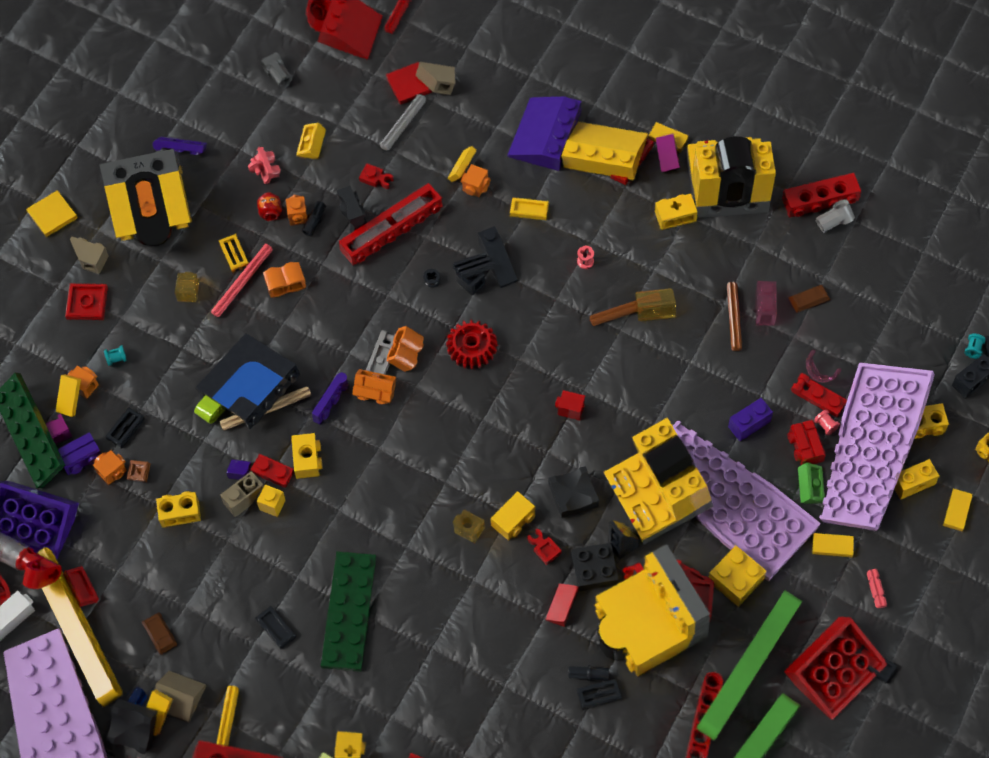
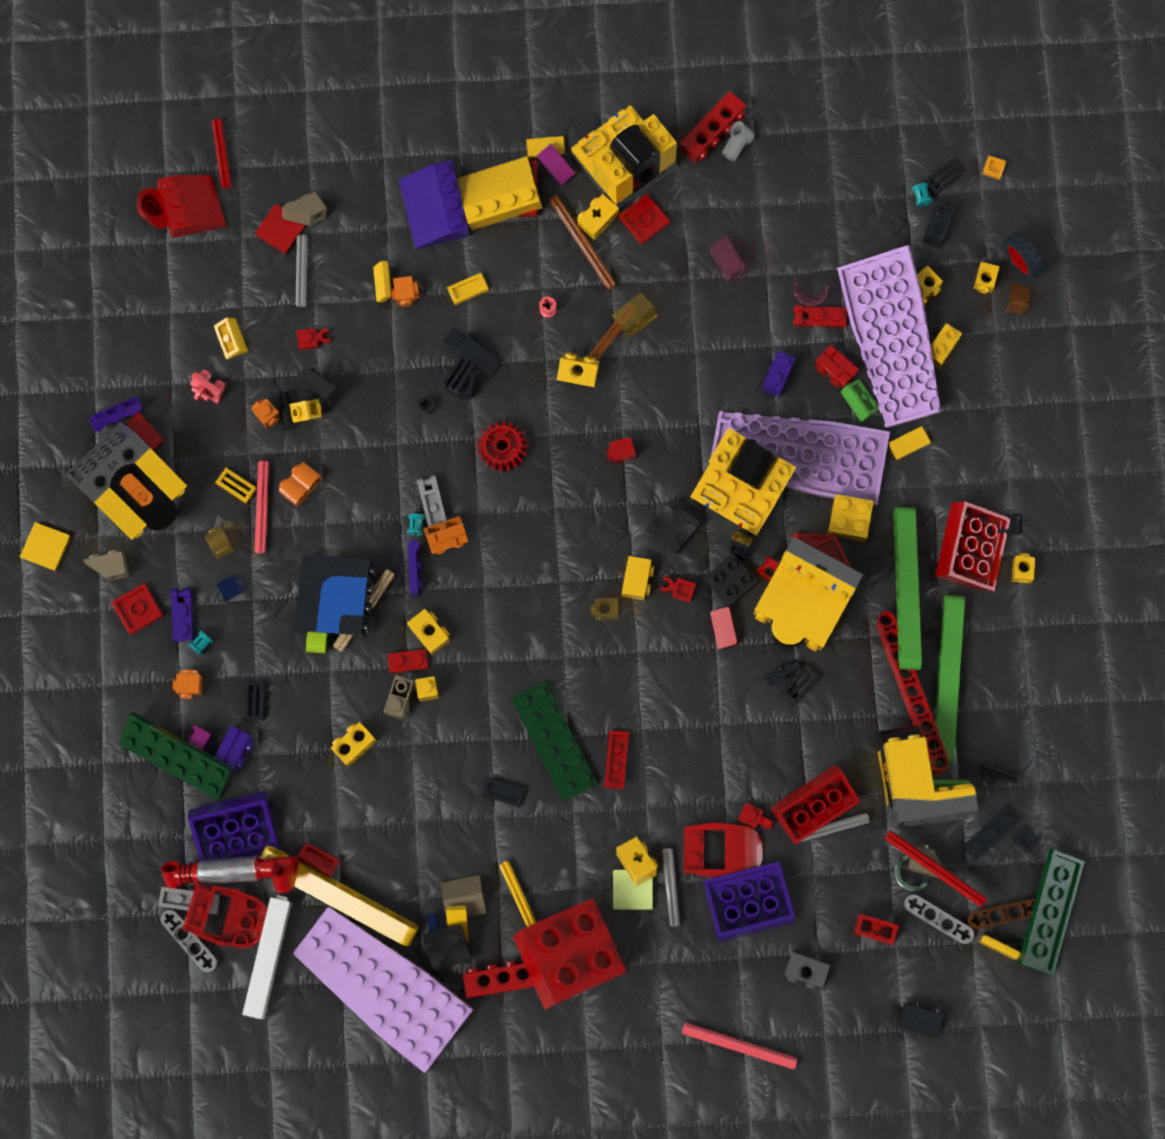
camera: 30 degrees left, 15 degrees up
(68, 395) = (187, 704): yellow tile -> none
(109, 466) = (268, 743): orange brick -> none
(117, 326) = (182, 615): none -> dark purple plate
(138, 471) = (294, 732): dark orange tile -> none
(159, 633) = (410, 856): reddish brown tile -> none
(170, 328) = (229, 588): none -> clear blue tile
(191, 173) = (145, 431): none -> red tile
(238, 469) = (378, 677): dark purple slope -> none
(269, 206) = (238, 423): red head -> none
(274, 66) = (147, 284): dark grey piece -> none
(329, 224) = (305, 410): none -> yellow brick
(357, 363) = (416, 524): none -> teal bush
(390, 224) = (358, 377): red piece -> none
(390, 658) = (616, 759): none -> red hinge
(405, 349) = (449, 485): orange brick -> none
(567, 313) = (568, 374): none -> yellow brick
(650, 227) = (583, 242): none -> dark orange axle
(714, 236) = (644, 219): none -> red tile
(734, 316) = (707, 286): dark orange axle -> none
(809, 298) = (759, 231): reddish brown tile -> none
(826, 422) = (841, 338): coral bush -> none
(867, 721) = (1017, 574): none -> yellow brick
(876, 588) = (965, 459): coral axle -> none
(957, 510) = (990, 351): yellow tile -> none

